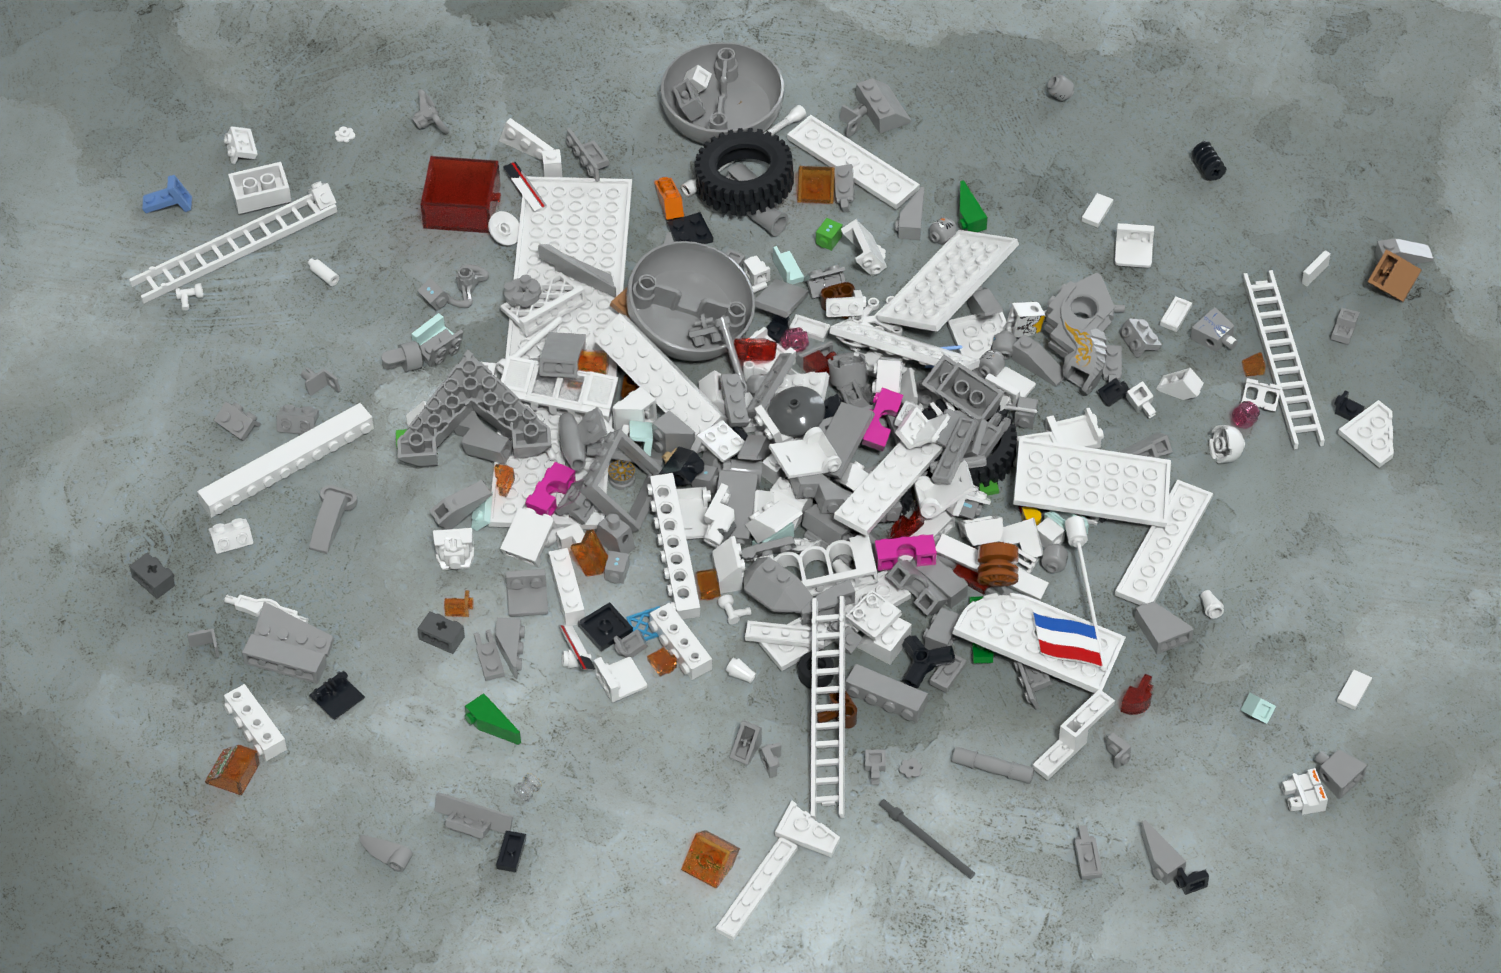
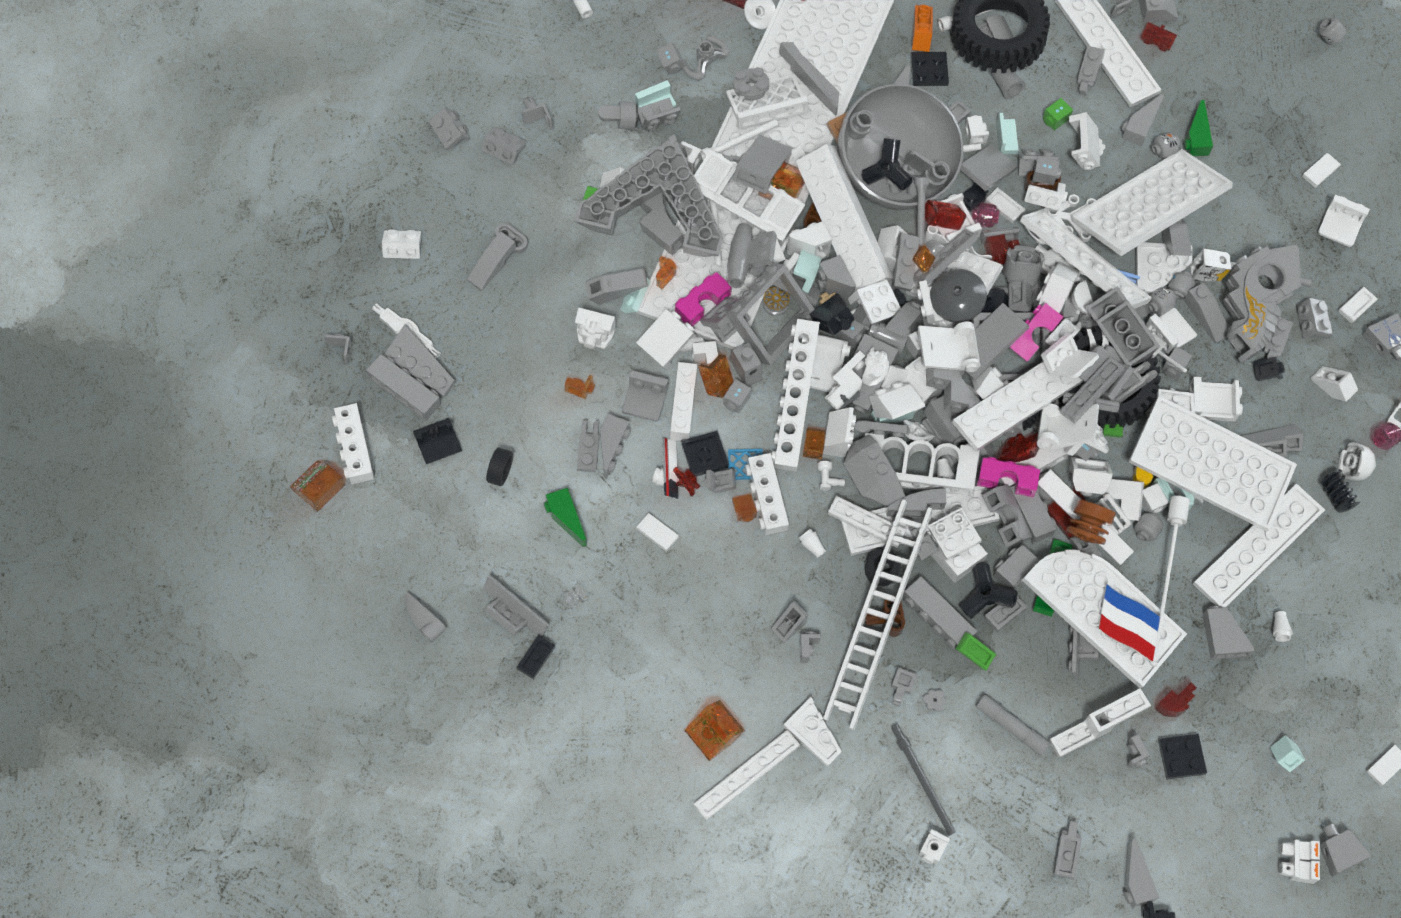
camera: 15 degrees right, 15 degrees up
(152, 575) = (318, 271): dark grey brick -> none
(285, 460) = (477, 184): white brick -> none
(409, 696) = (499, 466): none -> black tyre
(441, 632) = (556, 418): dark grey brick -> none
(586, 708) = (657, 532): none -> white tile
(597, 651) = (686, 480): none -> clear red animal
(619, 678) = (699, 512): white bracket -> none
(694, 323) = (880, 170): none -> black piece
(742, 496) = (876, 367): none -> white hat
(750, 390) = (923, 258): none -> clear orange plate
(816, 184) = (1063, 59): clear orange slope -> none
(838, 282) = (1046, 171): none -> light grey brick
(898, 139) = (1159, 36): none -> clear red hips
(914, 380) = (1082, 298): none -> white tile
(933, 712) = (975, 651): none -> bright green tile
(959, 890) = (933, 856): none -> white brick
(1140, 398) = (1291, 385): white brick -> none
(1162, 742) = (1182, 756): none -> black plate
(1220, 474) = (1339, 492): none -> black piece

